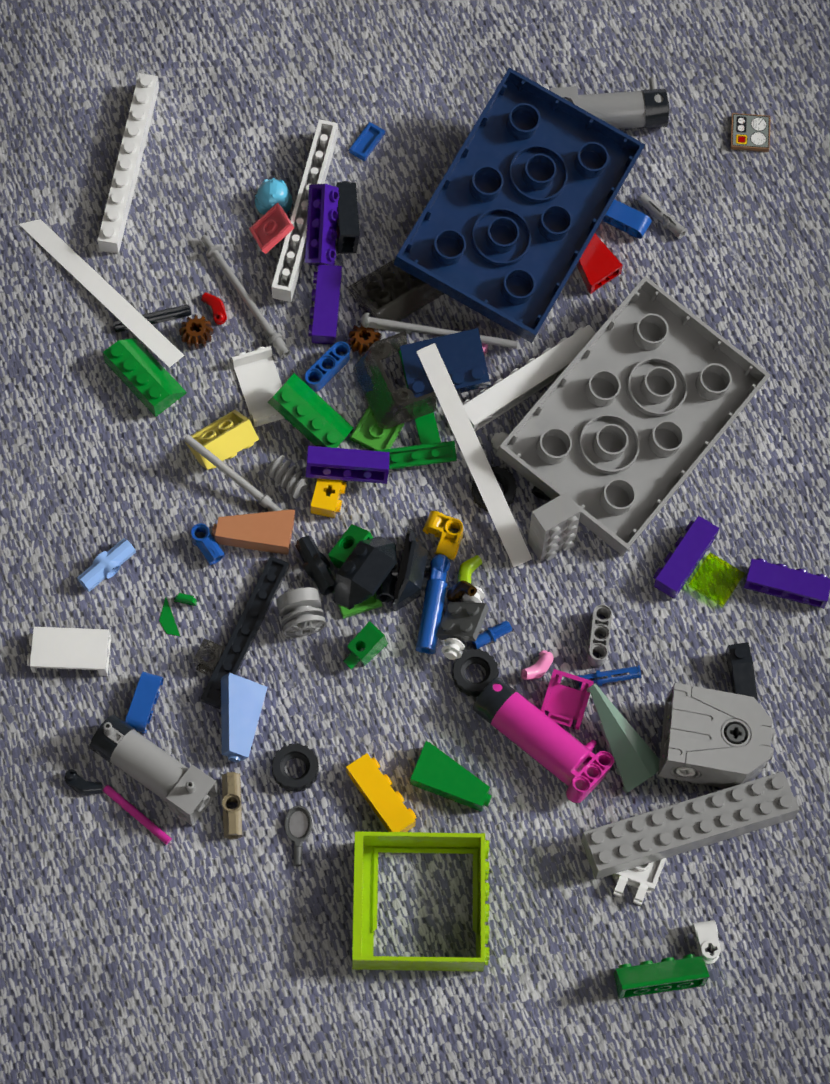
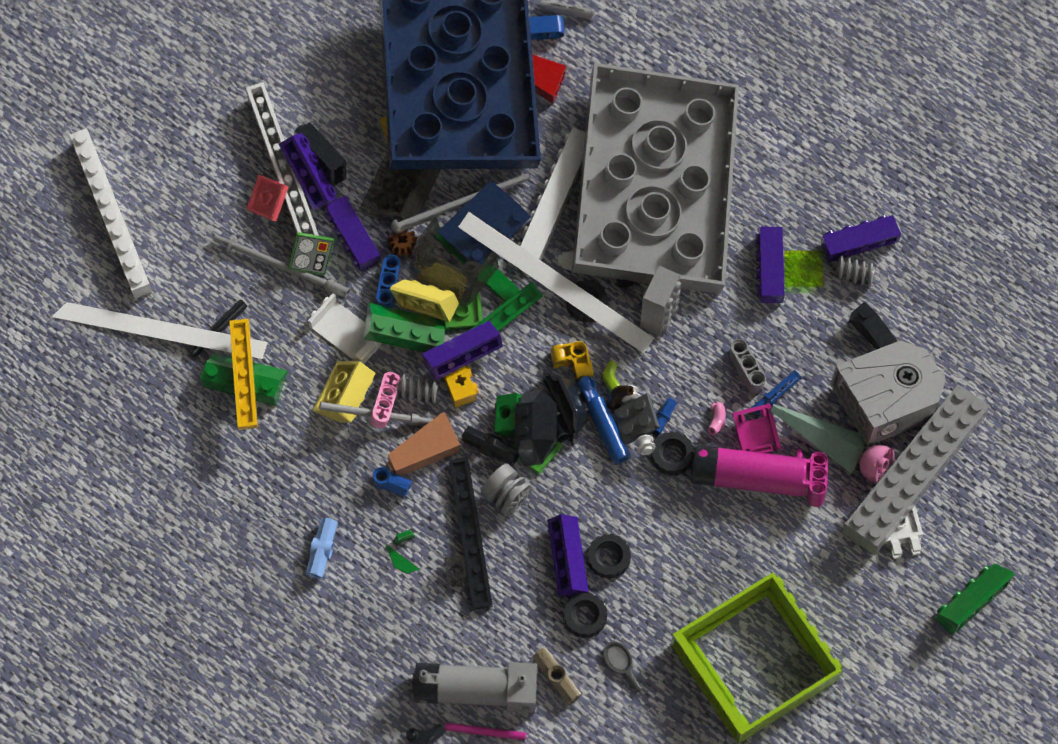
camera: 30 degrees left, 0 degrees up
(70, 649) = (340, 634): white panel -> none
(139, 369) = (243, 374): none -> yellow plate
(143, 701) = (429, 637): blue beam -> none
(192, 337) = (264, 322): reddish brown gear -> none
(217, 306) = (265, 287): red arm -> none
(240, 714) = (514, 601): slope -> none
(250, 468) = (385, 399): none -> bright pink beam
(273, 192) = (246, 172): medium azure helmet -> none
(275, 299) = (311, 253): none -> tile
(315, 704) = (567, 555): none -> dark purple brick
(347, 399) = (425, 299): none -> light yellow slope
(353, 713) = (601, 543): none -> black tyre
(367, 141) = (292, 84): blue tile -> none
(369, 638) = (578, 474): green torso -> none
(380, 795) = (666, 594): yellow brick -> none
(448, 779) = (710, 549): green slope -> none
(656, 794) = (876, 461): none -> bright pink cylinder
(705, 938) = (987, 547): white piece -> none
(761, 611) = (856, 271): none -> light grey piece

